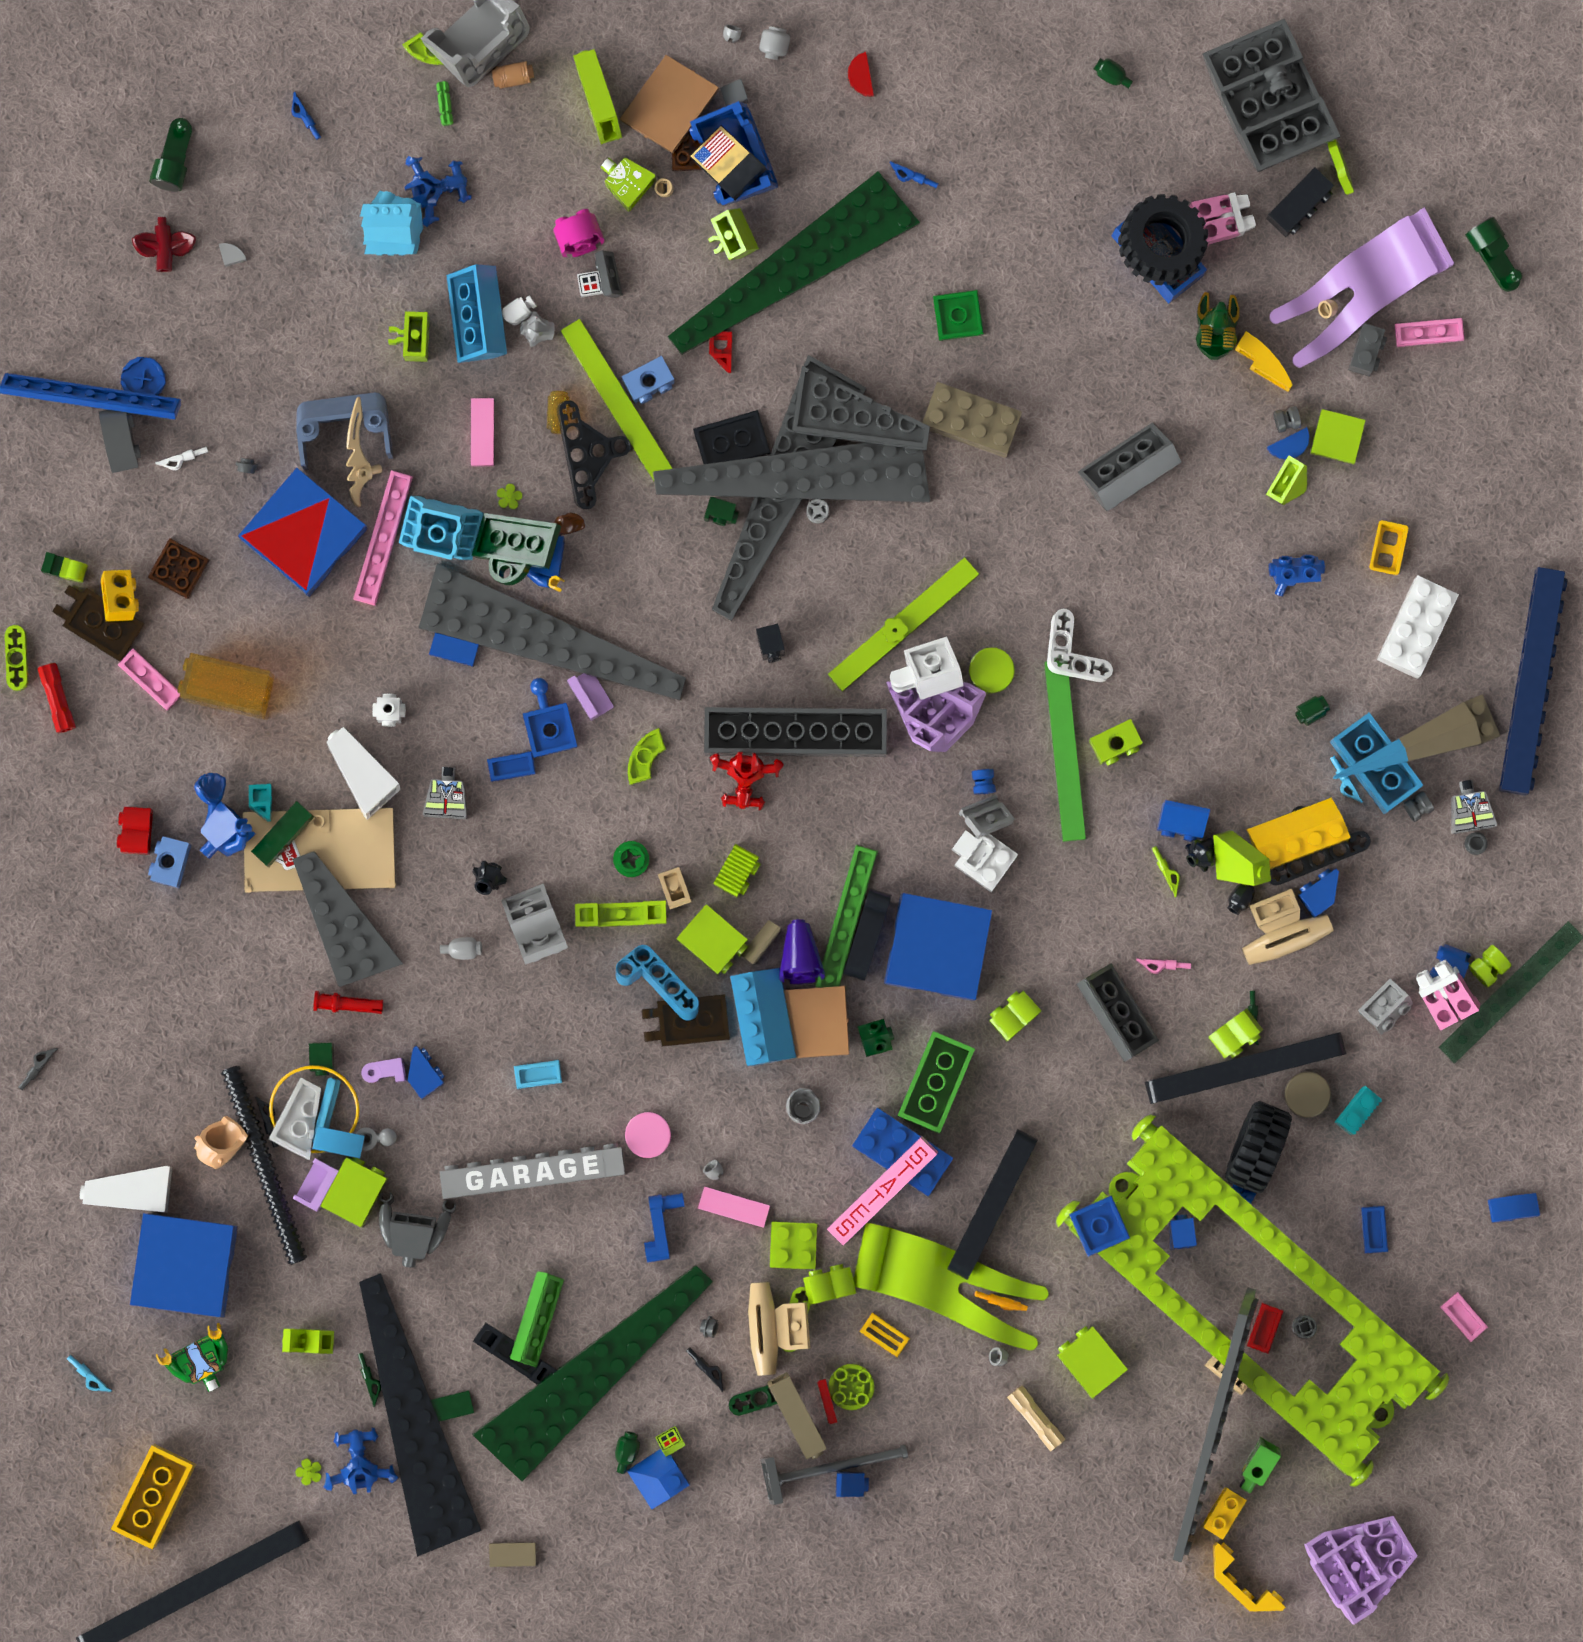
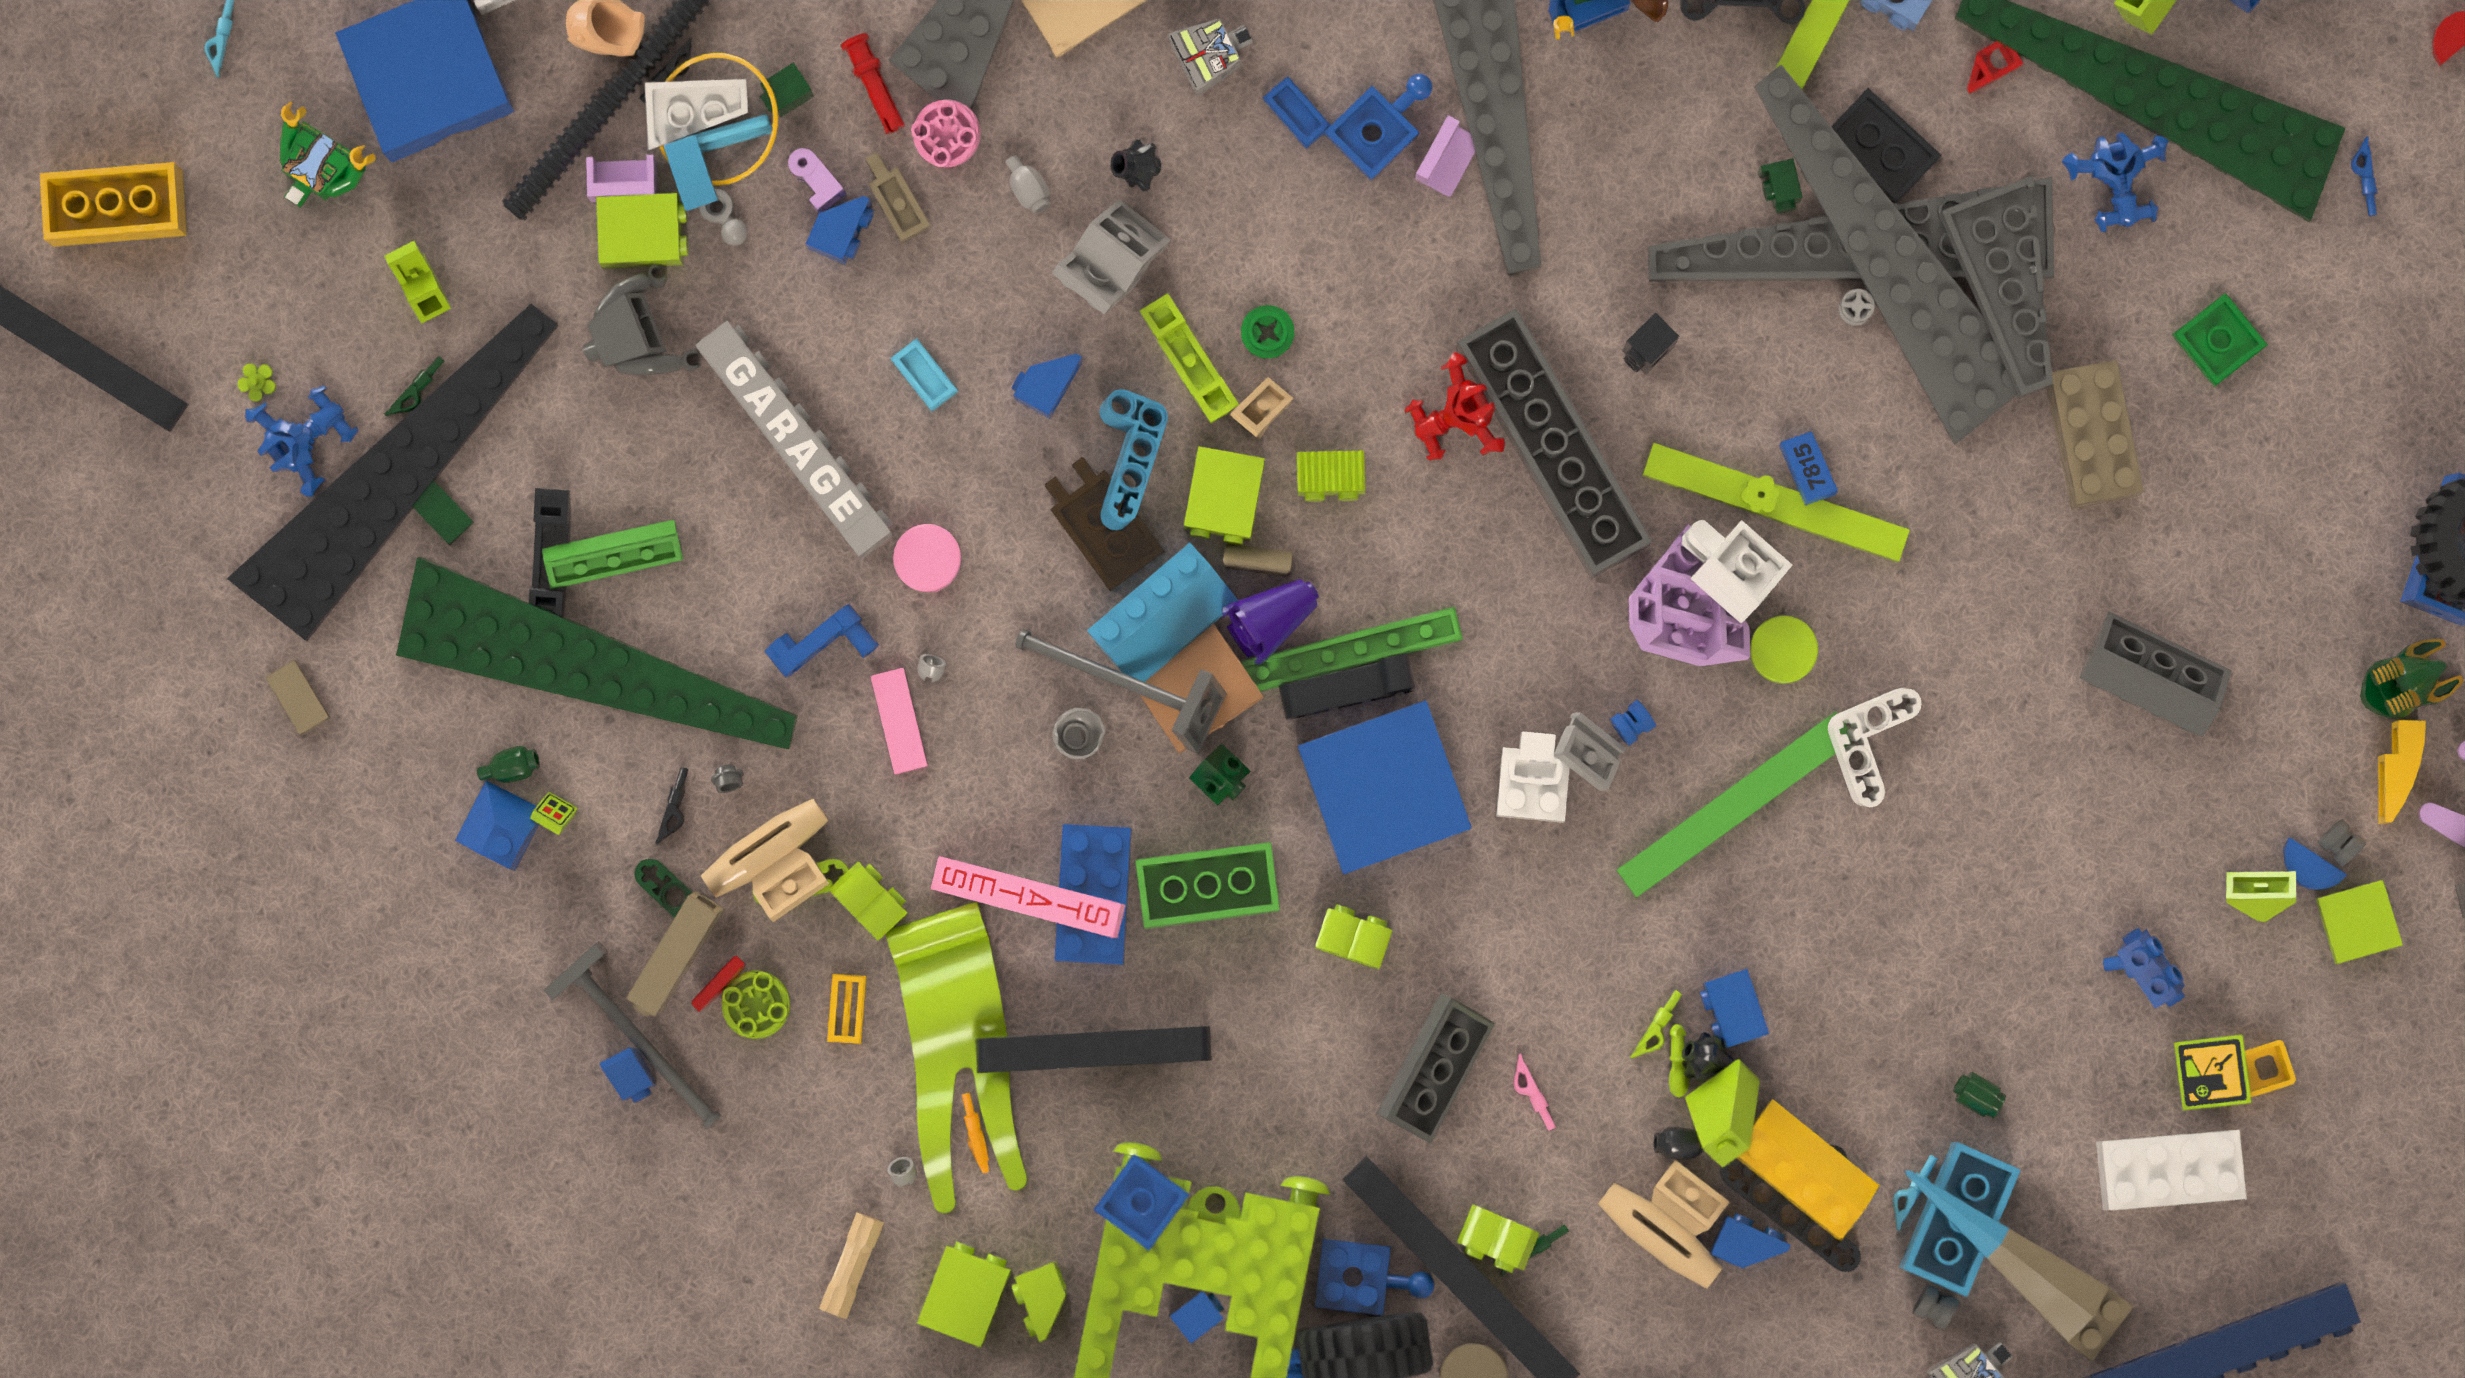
camera: 65 degrees right, 0 degrees up
(402, 978) = (946, 133): none -> bright pink tile
(425, 1030) = (896, 200): none -> dark tan plate
(586, 1006) = (1046, 384): none -> blue slope
(643, 756) = (1409, 270): lime tile -> none
(793, 1245) = (893, 825): lime plate -> none
(824, 314) = (2117, 166): none -> blue piece
(832, 1029) = (1196, 711): none -> dark grey tile
(895, 594) = (1808, 468): none -> blue tile
(1119, 1314) = (1043, 1295): none -> lime slope
(1126, 733) = (1805, 865): lime brick -> none
(1204, 877) = (1677, 1081): none -> lime piece
(1209, 1114) = (1374, 1265): none -> blue plate
(1376, 570) = (2212, 1072): none -> piece

